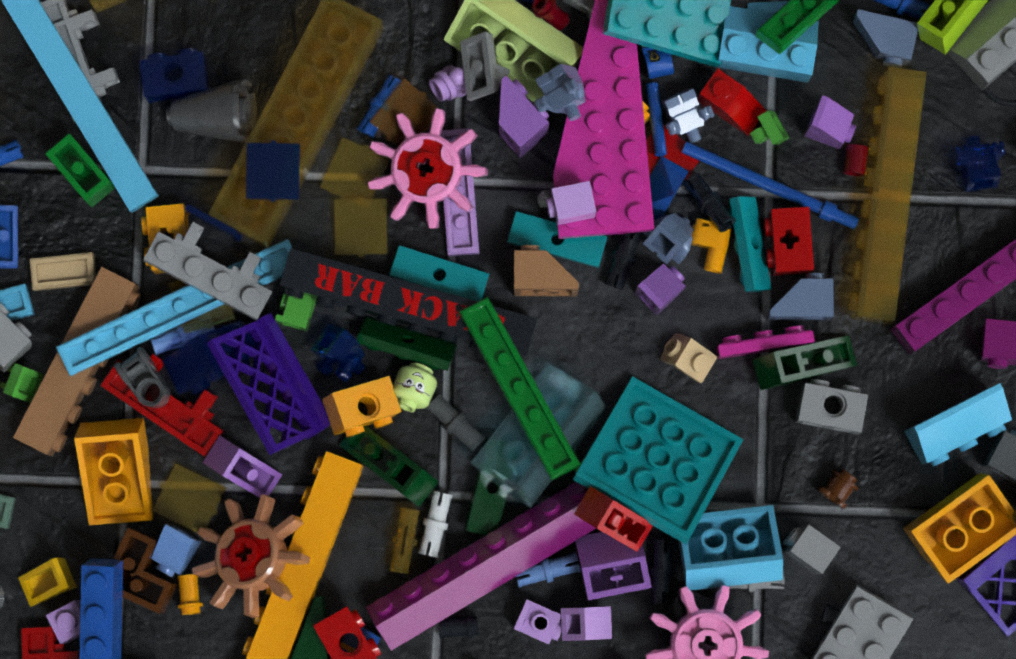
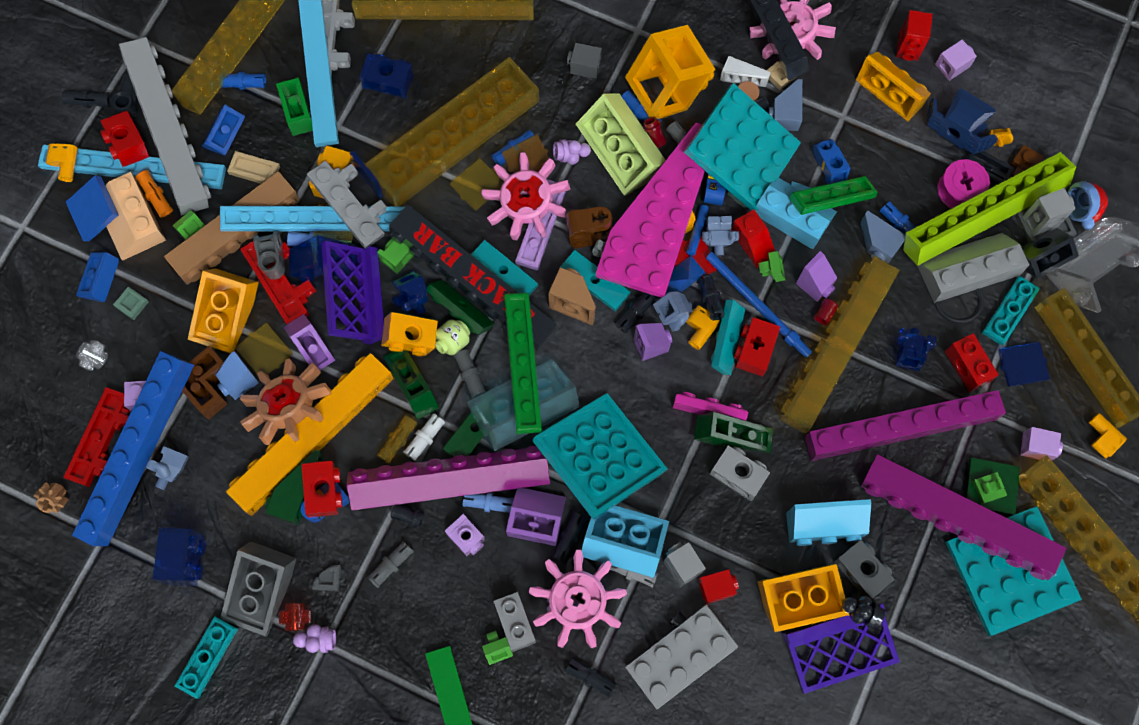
camera: 20 degrees right, 10 degrees down
(47, 581) = (138, 362): yellow slope -> none
(189, 594) = (231, 413): light orange pin -> none
(216, 112) = (402, 105): flat silver cone -> none
(273, 171) = (420, 153): clear blue piece -> none
(360, 226) = (465, 219): clear yellow piece -> none
(480, 66) = (591, 145): light grey slope -> none
(515, 182) = (583, 228): none -> reddish brown piece
(519, 119) = (602, 186): medium lavender slope -> none
(562, 91) = (639, 178): sand blue piece -> none
(571, 203) = (613, 251): lavender brick -> none
(586, 623) = (498, 550): lavender brick -> none
(613, 519) = (549, 479): red brick -> none
(688, 357) = (652, 396): tan bracket -> none
(807, 300) = (751, 391): sand blue slope -> none
(839, 488) = (722, 531): reddish brown brick -> none
(860, 555) = (718, 586): none -> red brick

